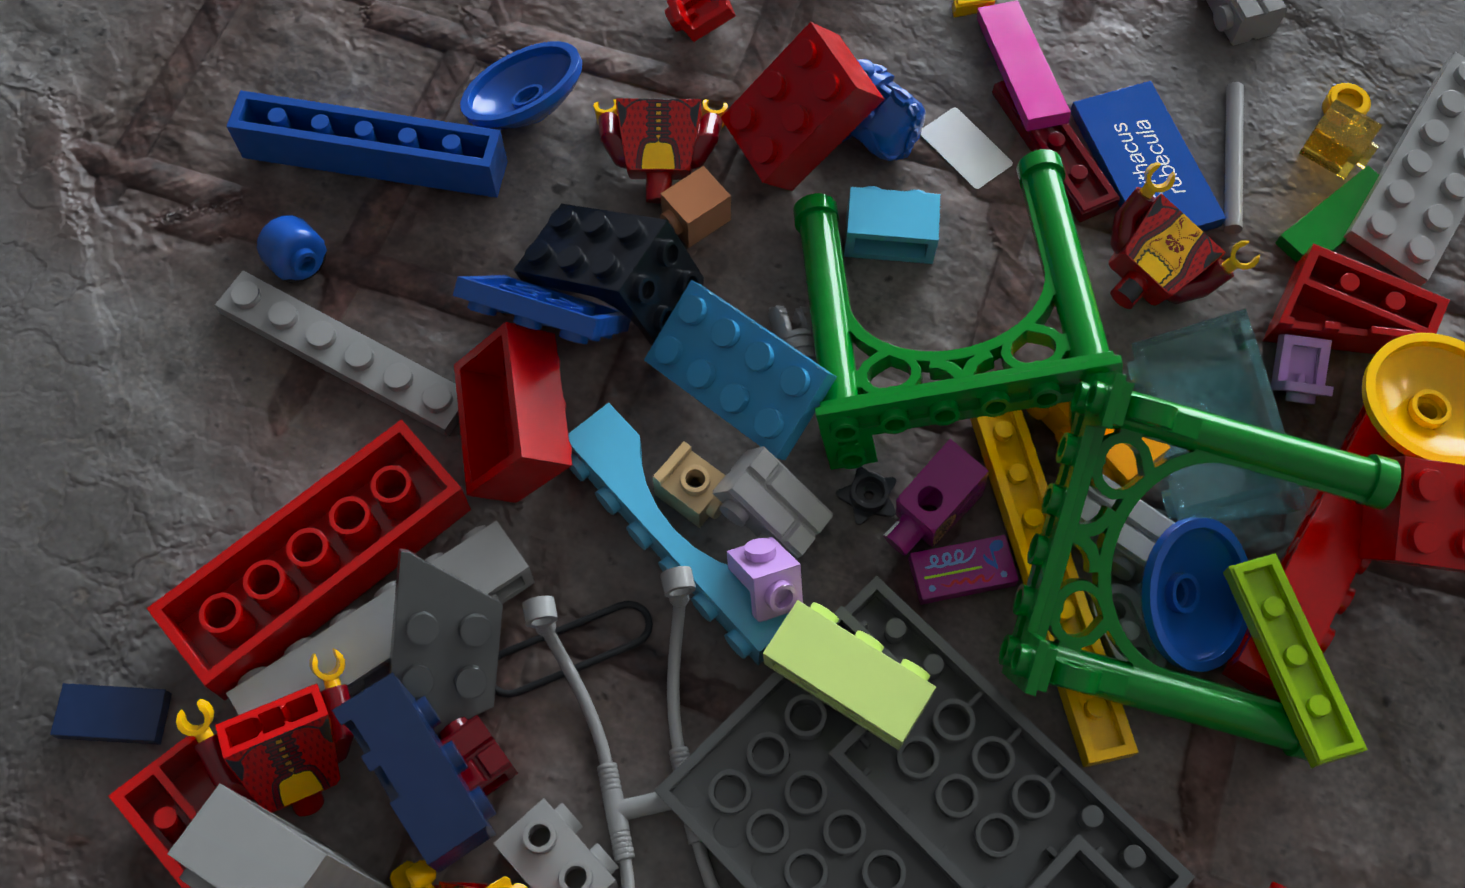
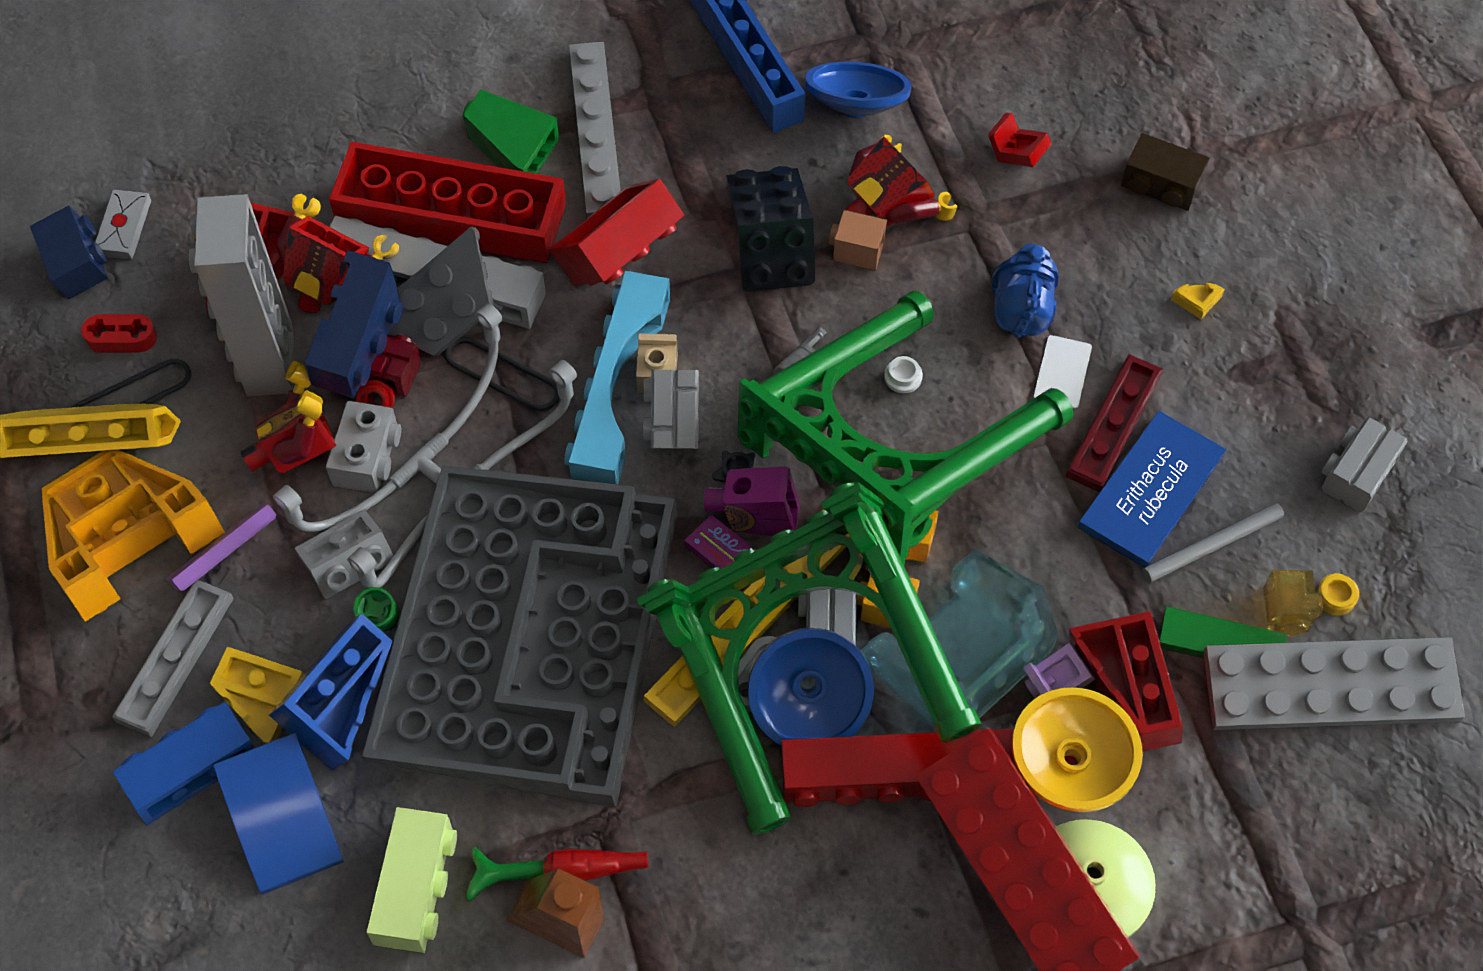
camera: 55 degrees right, 5 degrees down
(111, 714) = (287, 176): dark blue tile -> none
(275, 438) = (510, 132): none -> green slope
(290, 245) = (637, 53): blue head -> none
(514, 809) = (364, 393): none -> red plate
(541, 306) = (698, 196): blue plate -> none
(739, 370) = (750, 330): dark azure plate -> none
(769, 575) = (615, 431): lavender bracket -> none
(801, 107) = (975, 241): red brick -> none
(849, 672) = (586, 510): yellowish green brick -> none
(875, 275) = (903, 375): none -> white plate
(892, 225) = (948, 358): medium azure brick -> none
(1023, 66) = (1155, 358): dark pink tile -> none
(1164, 252) = (1070, 529): torso -> none
(1294, 661) = (805, 769): lime tile -> none

